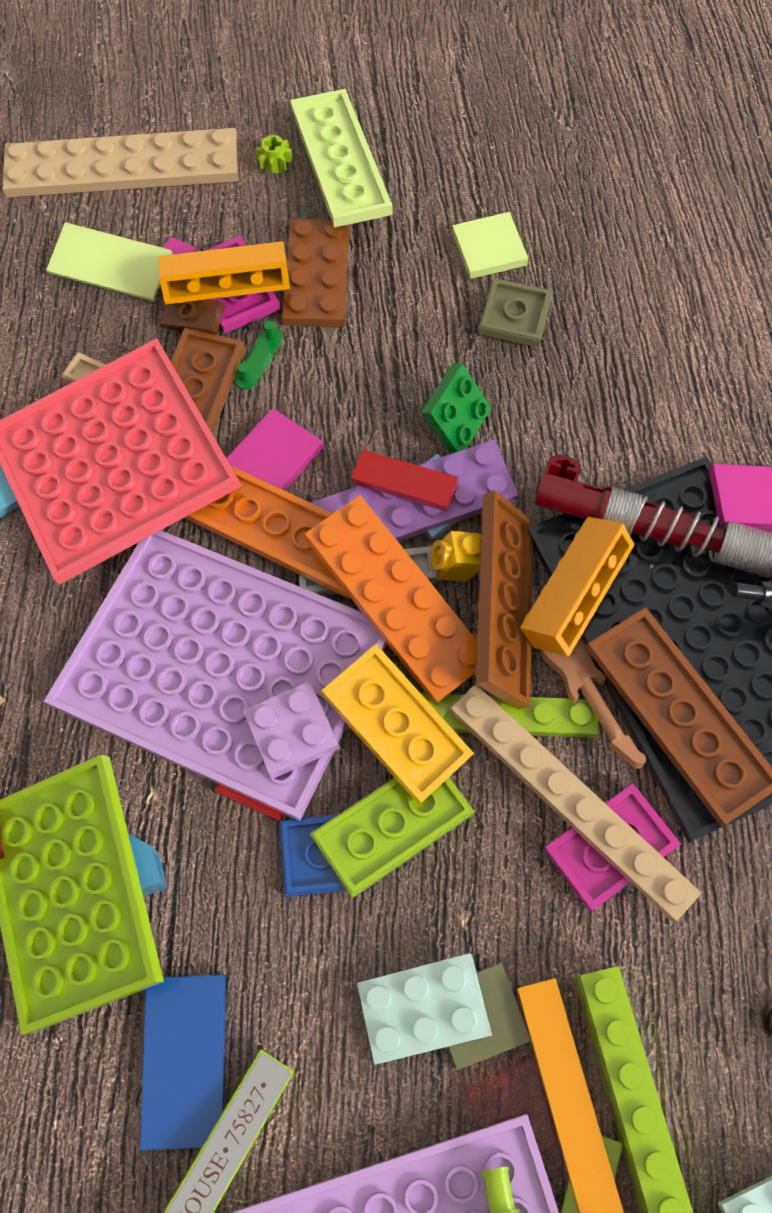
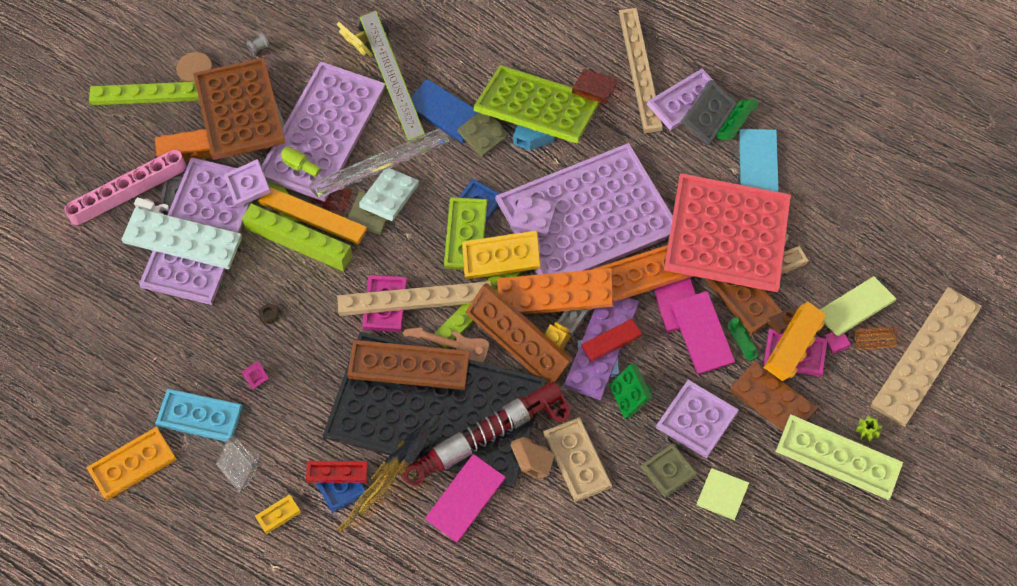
camera: 130 degrees right, 5 degrees down
(126, 208) = (887, 333): none -> clear orange tile
(190, 948) = (482, 133): none -> olive plate
(291, 397) = (702, 333): none -> dark pink tile
(390, 1075) = (378, 163): none -> clear plate
(419, 327) = (697, 419): none -> lavender plate
(577, 586) = (497, 365): light orange brick -> none
(596, 419) = (577, 459): none -> tan tile
(652, 454) = (532, 458): none -> medium nougat slope

